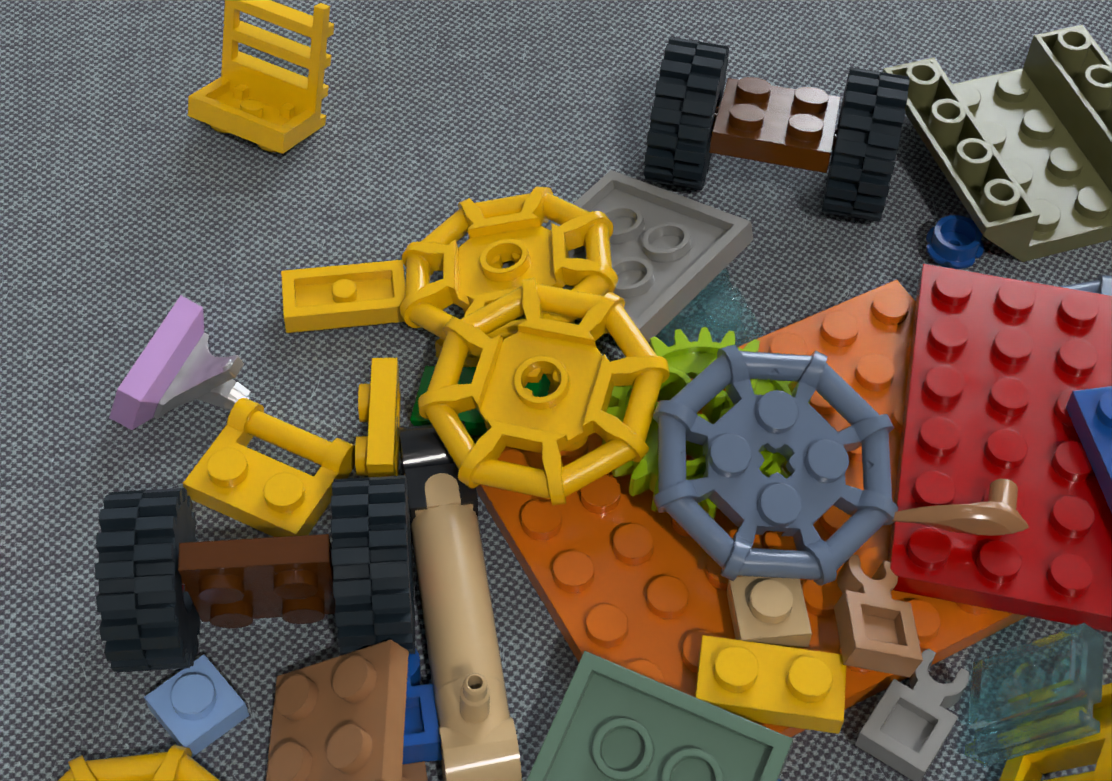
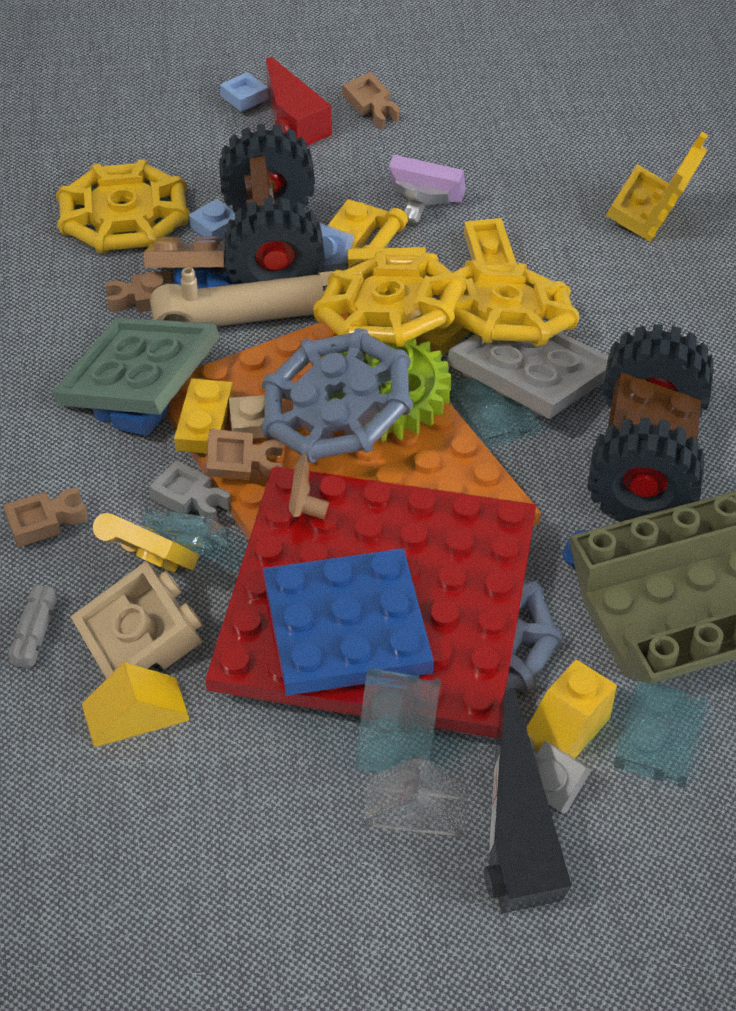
camera: 90 degrees right, 5 degrees down
(310, 501) = (335, 244): none -> light blue plate

